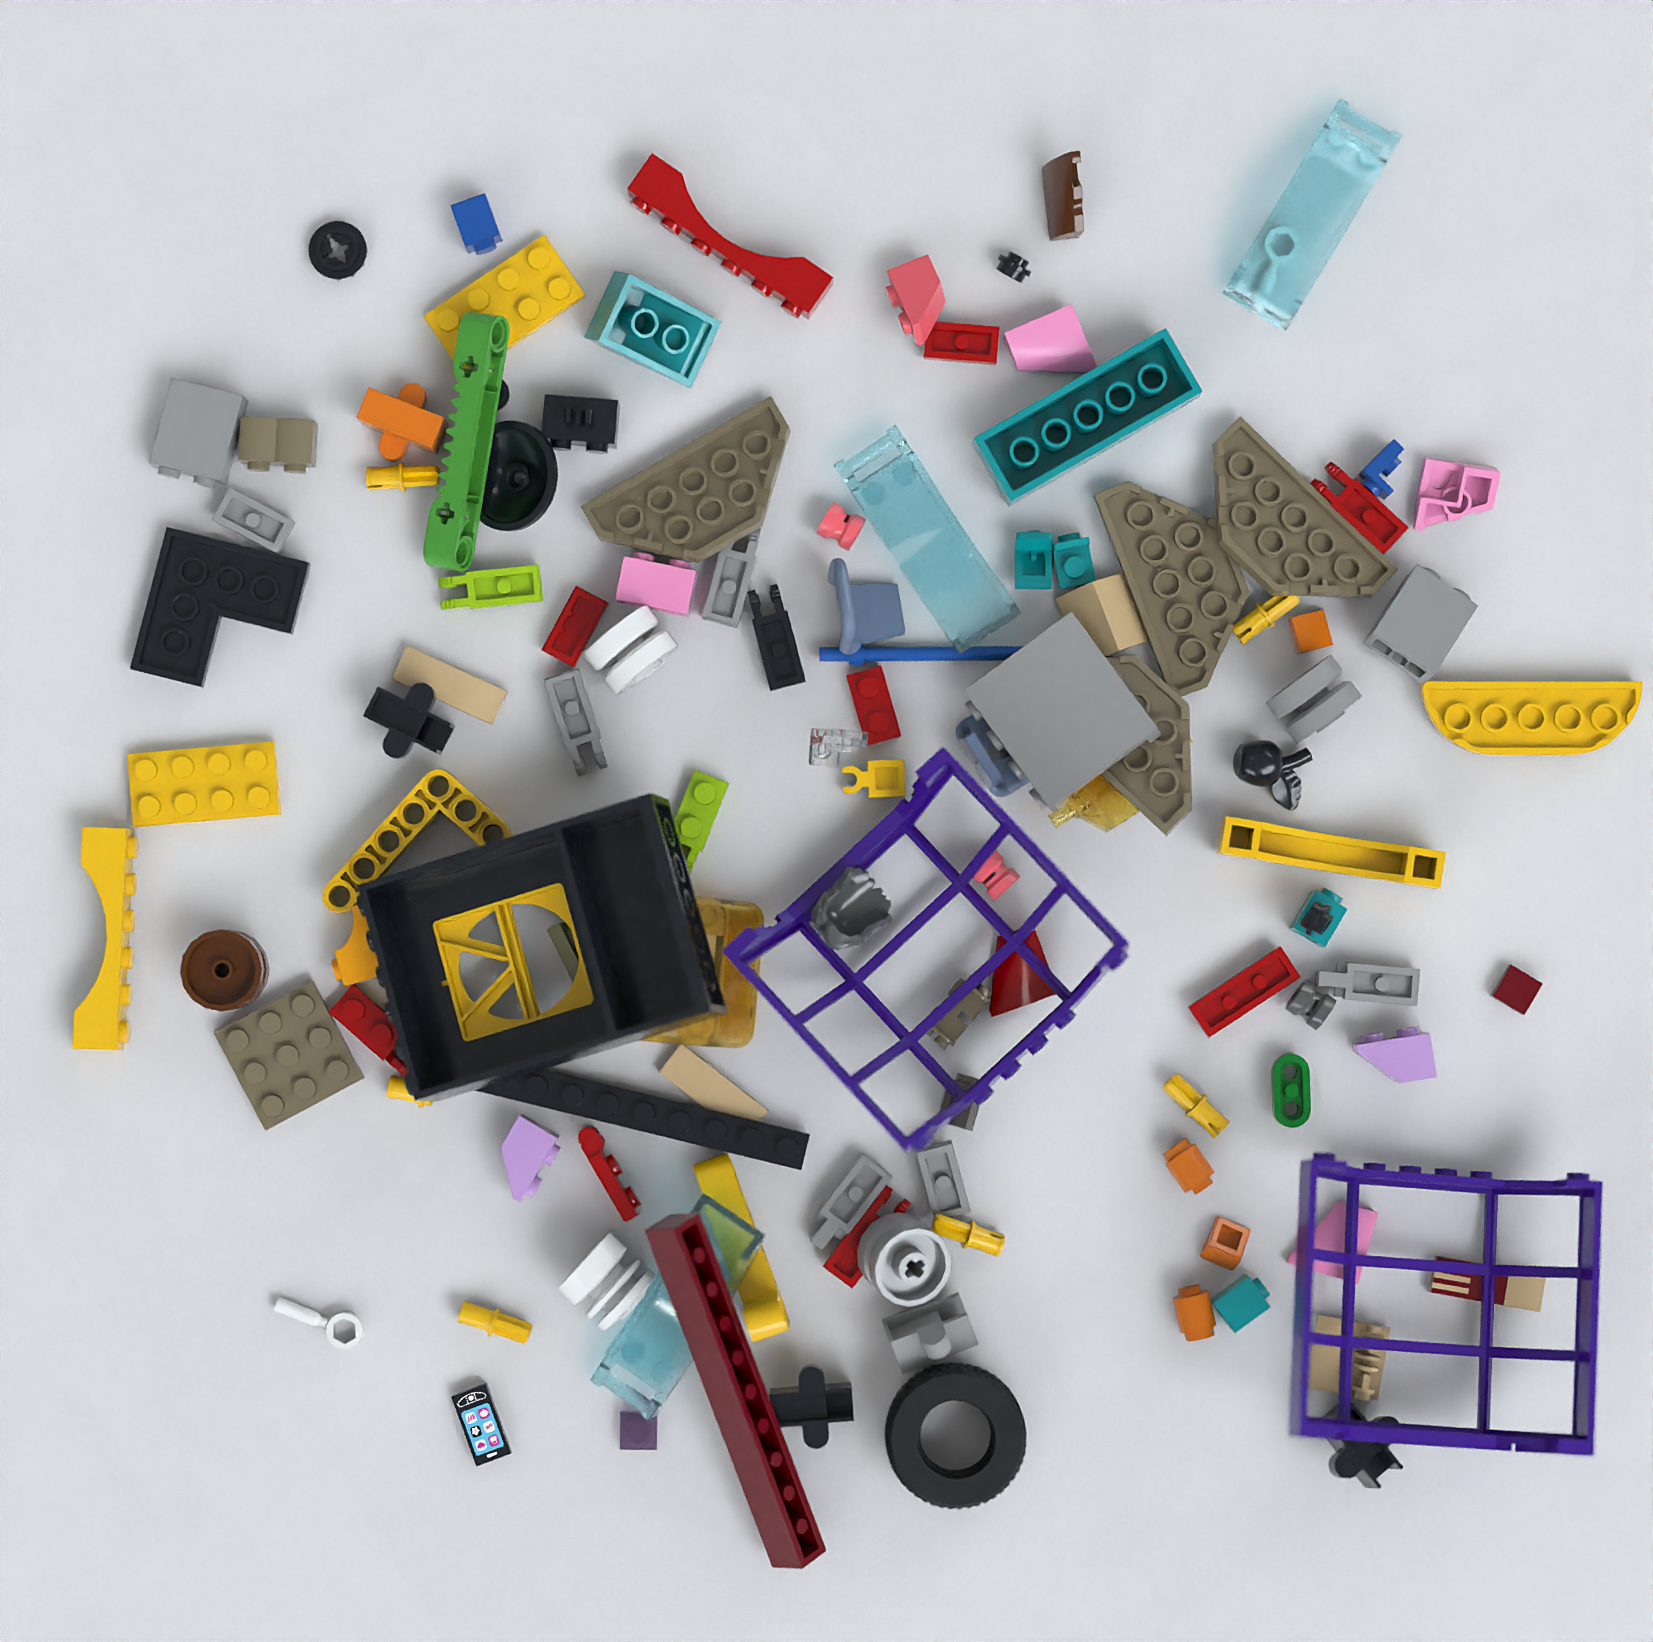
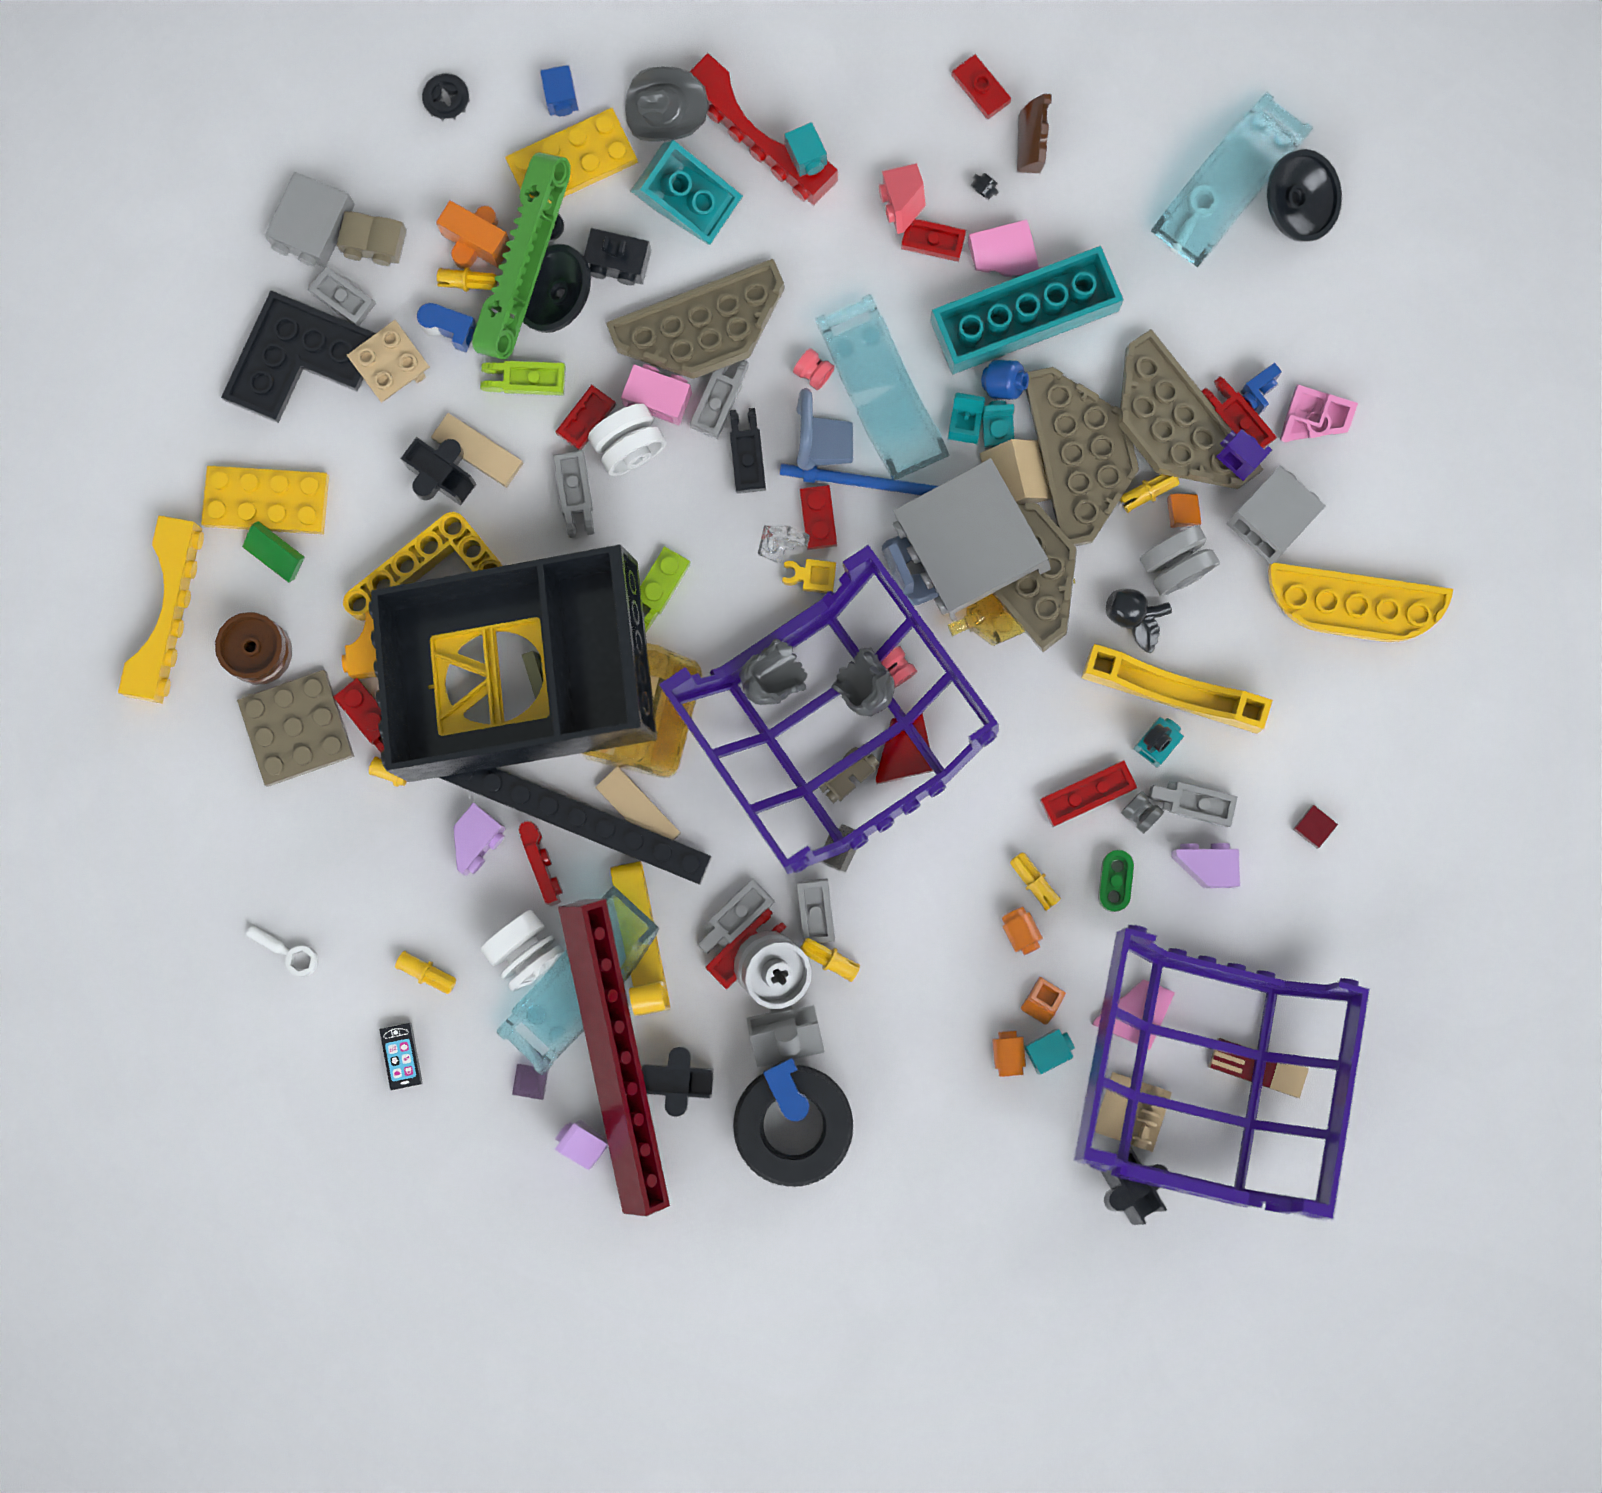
camera: 15 degrees right, 5 degrees down
(226, 847) = (273, 551): none -> green tile
(325, 594) = (388, 361): none -> tan hinge
(376, 533) = (448, 323): none -> blue leg
(610, 226) = (665, 104): none -> dark grey hat
(711, 1495) = (581, 1144): none -> lavender slope
(792, 262) = (806, 149): none -> teal brick
(950, 1412) = (791, 1102): none -> blue leg
(962, 906) = (865, 684): none -> dark grey hair
(991, 140) = (981, 86): none -> red plate
(1073, 506) = (1004, 379): none -> blue head
(1370, 557) = (1242, 453): none -> dark purple brick
(1415, 225) = (1304, 195): none -> black dish

